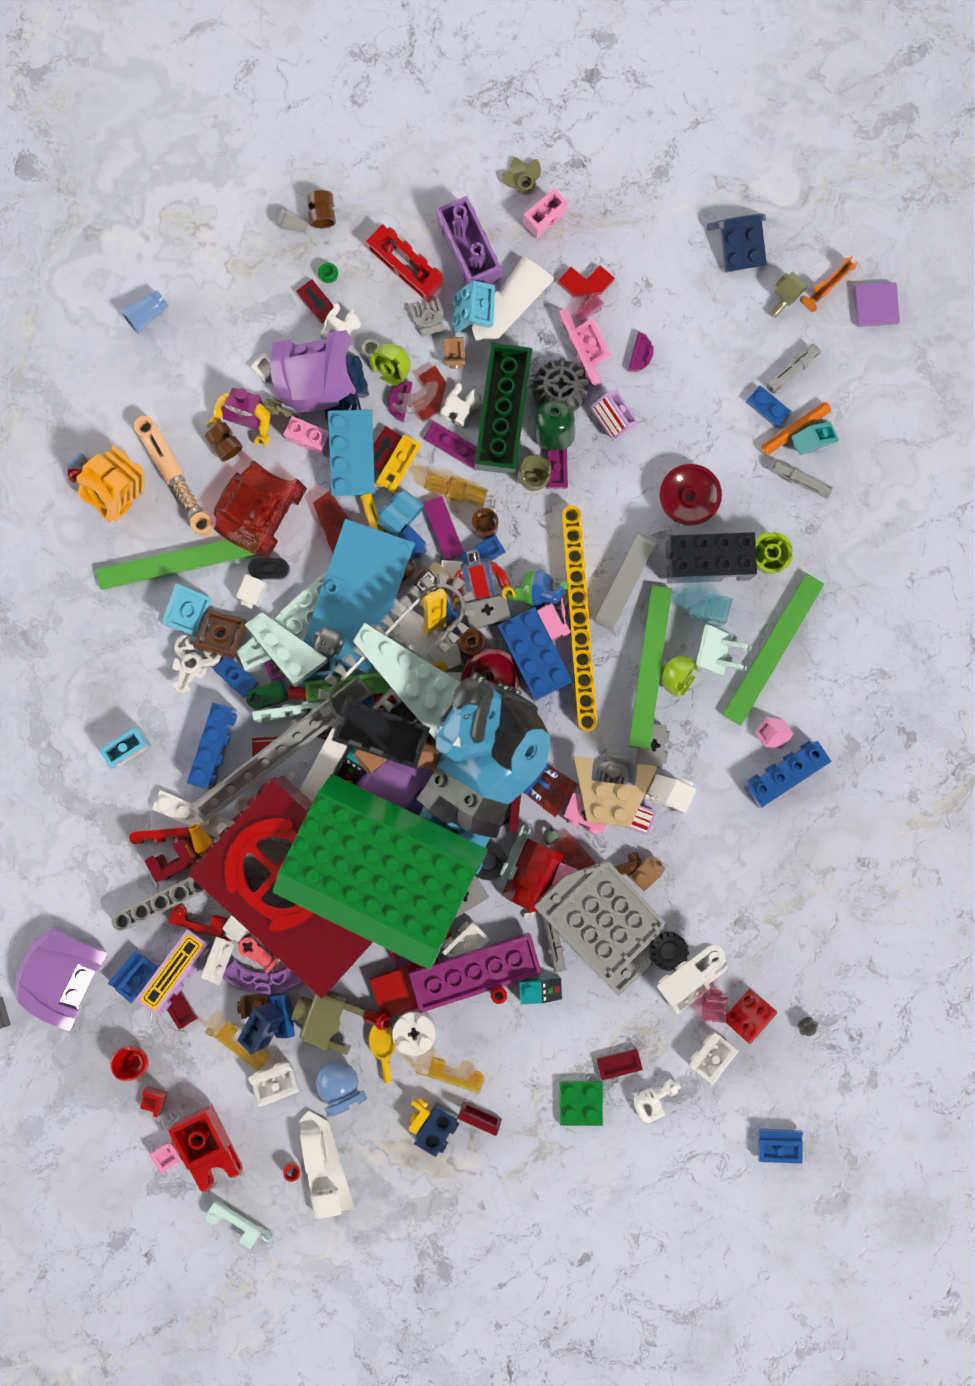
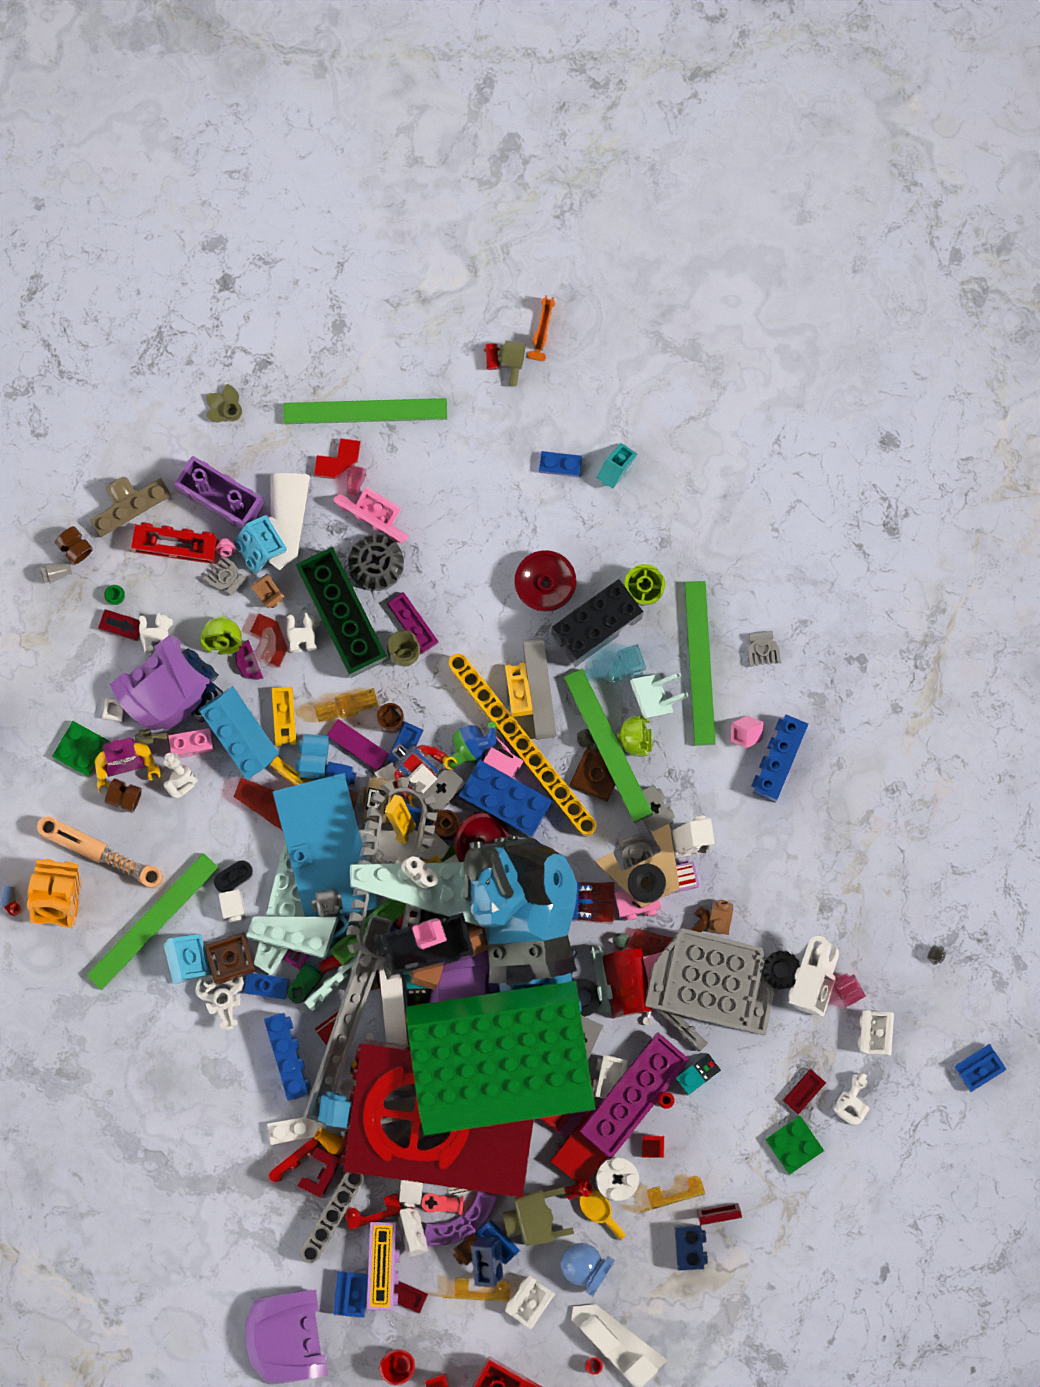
camera: 35 degrees left, 5 degrees down
(125, 747) = (214, 1107): medium azure brick -> none
(214, 379) = (79, 748): none -> green plate
(216, 818) = (334, 1109): none -> dark azure brick
(254, 508) = (189, 834): clear red piece -> none
(281, 458) = (181, 777): none -> white piece
(369, 347) = (193, 635): white tile -> none
(384, 447) = (262, 709): dark red tile -> none
(387, 726) = (429, 933): none -> bright pink panel
(389, 204) = (128, 503): none -> dark tan plate
(417, 668) = (419, 872): none -> white piece
(418, 1119) = (668, 1249): yellow bracket -> none
(444, 293) = (226, 547): none -> bright pink plate
(451, 444) = (317, 670): magenta tile -> none
(462, 1024) = (652, 1146): none -> red panel
(478, 590) = (423, 775): none -> white tile
(514, 814) = (578, 943): dark red tile -> none
(545, 213) = (266, 425): bright pink brick -> none
(555, 425) = (394, 598): dark green cylinder -> none
(592, 804) = (649, 871): none -> black tyre
(606, 571) = (518, 690): none -> yellow plate
(614, 415) = (438, 556): brick -> none
(620, 684) = (593, 776): none -> reddish brown tile
(634, 648) = (585, 739): none -> clear smoke plate
(635, 256) = (365, 411): none -> bright green tile
(641, 354) = (425, 489): magenta tile -> none
(742, 241) = (446, 341): dark blue piece -> none
(750, 1016) = (884, 978): red bracket -> none
(772, 278) = (492, 356): none -> red pin
(799, 425) = (595, 466): orange axle -> none
(800, 362) = (561, 411): light grey pin -> none
(802, 479) = (623, 507): light grey pin -> none
(835, 670) = (763, 646): none -> light grey piece
(876, 304) = (593, 320): medium lavender tile -> none

